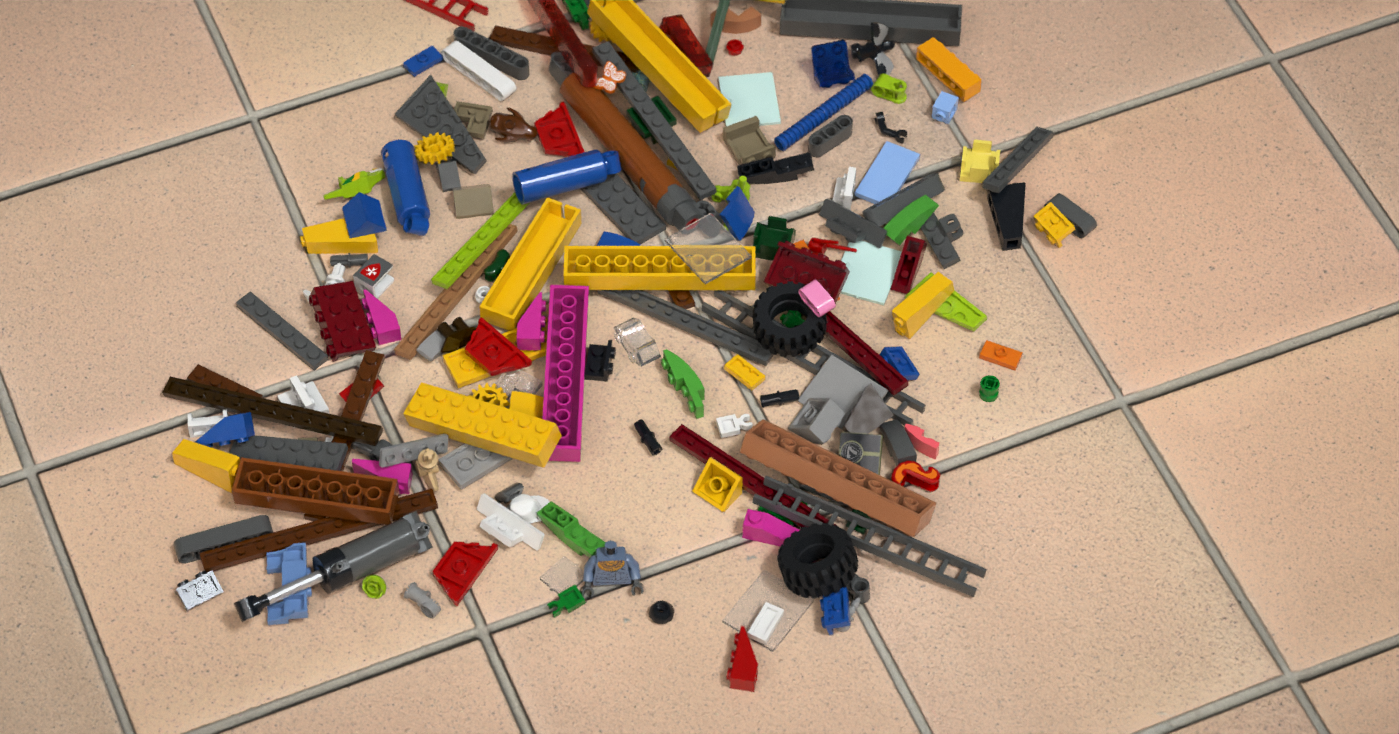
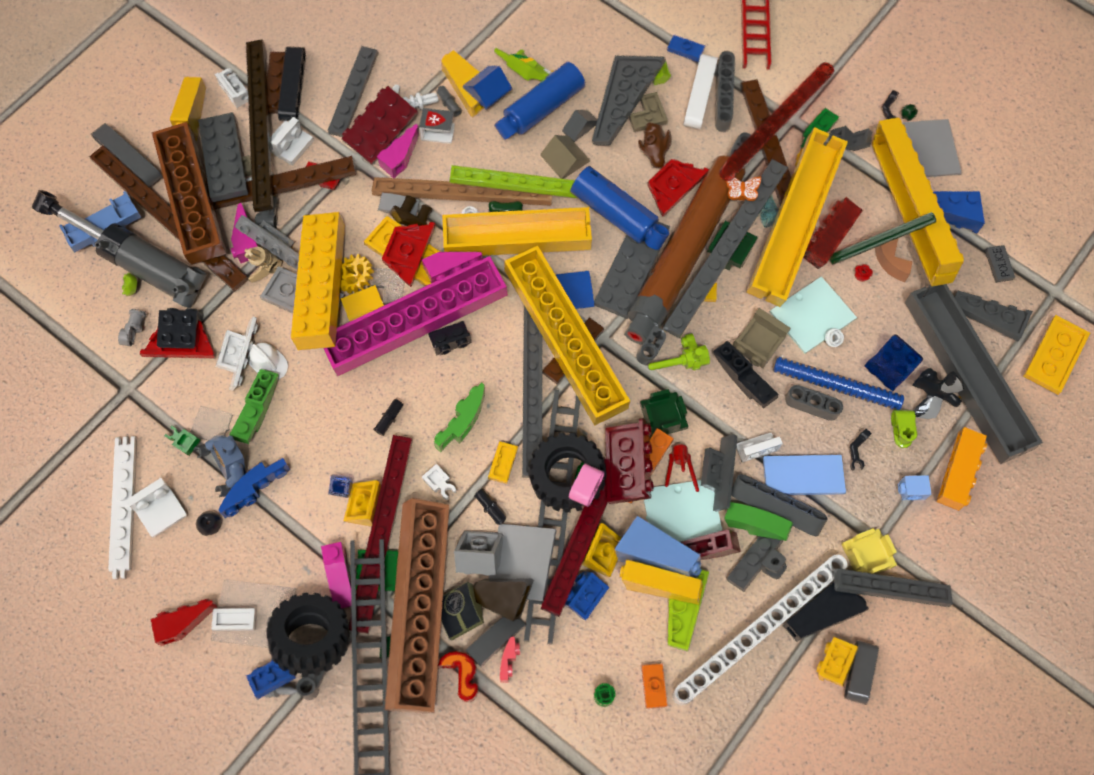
camera: 60 degrees right, 15 degrees up
(198, 590) = (68, 163): bracket -> none
(229, 428) = (222, 104): blue slope -> none
(240, 372) = (291, 83): none -> black beam
(434, 148) = (592, 99): yellow gear -> none
(452, 559) = (178, 328): none -> black bracket
(509, 493) = (265, 336): dark grey slope -> none
(601, 673) = (121, 514): none -> white hinge
(624, 643) = (157, 507): none -> white bracket
(636, 342) = (484, 356): clear brick -> none
(649, 564) = (245, 489): none -> blue slope
(690, 497) = (340, 485): none -> clear blue brick
(708, 248) = (602, 362): clear piece -> none
(737, 214) = (669, 368): blue slope -> none
(781, 94) = (838, 337): none -> white plate
(868, 333) = (601, 553): none -> yellow slope
(890, 289) = (657, 549): none -> medium blue slope
(998, 264) = (753, 635): none -> white beam

